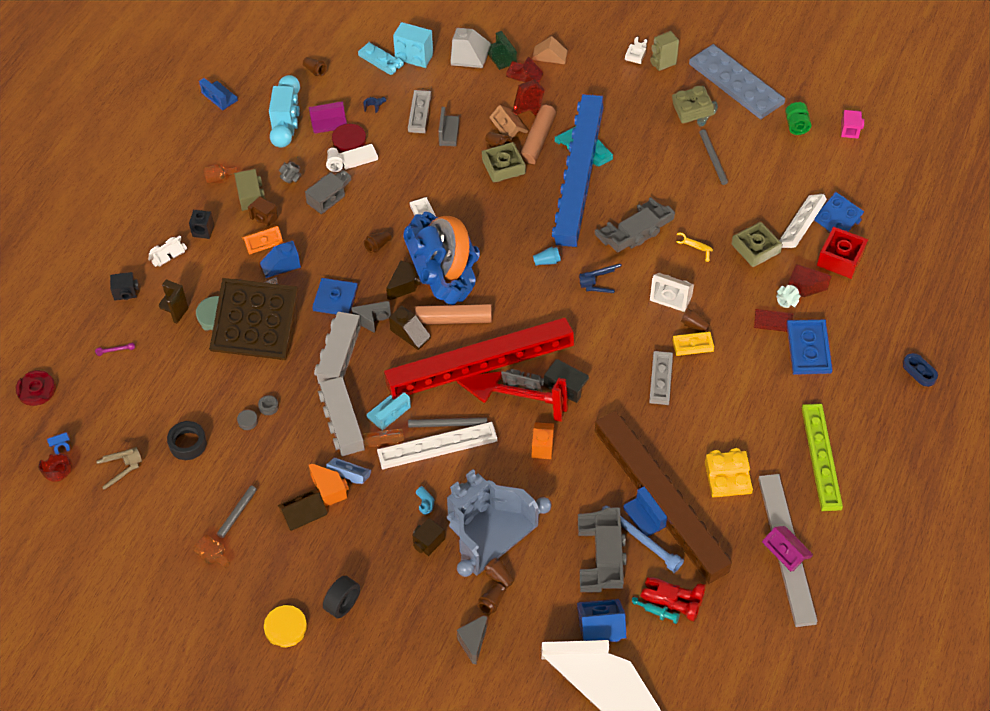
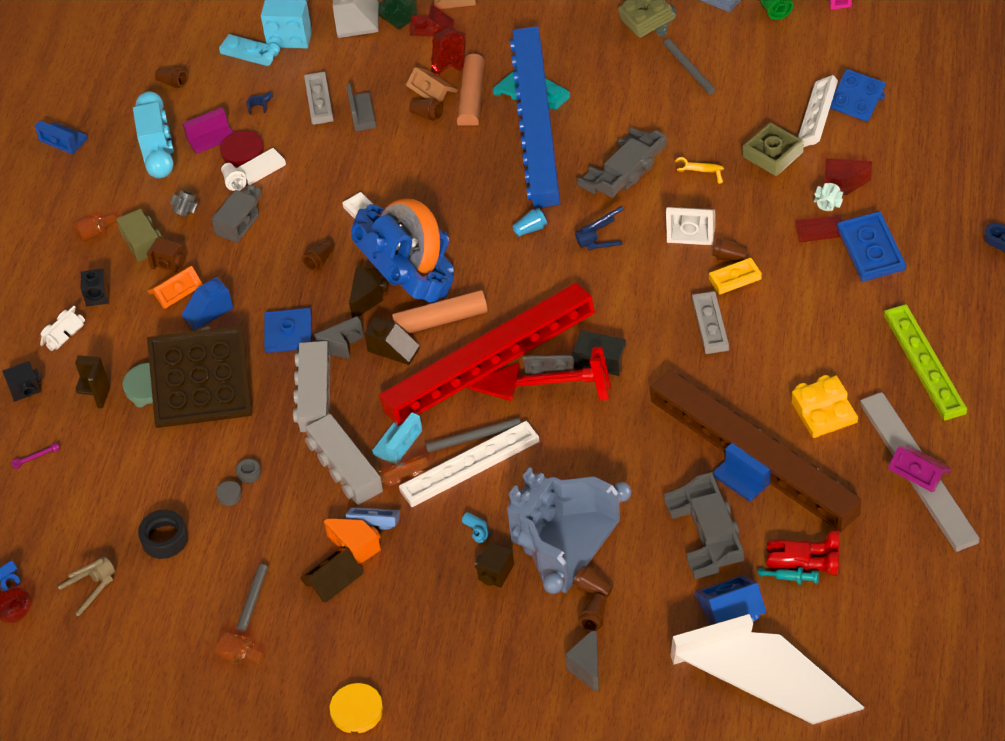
camera: 10 degrees left, 5 degrees down
(341, 596) = (414, 655): black tyre -> none
(503, 162) = (441, 130): olive brick -> none
(542, 440) = (594, 426): orange slope -> none
(672, 561) = (792, 518): medium blue piece -> none
(842, 252) = (875, 133): red brick -> none

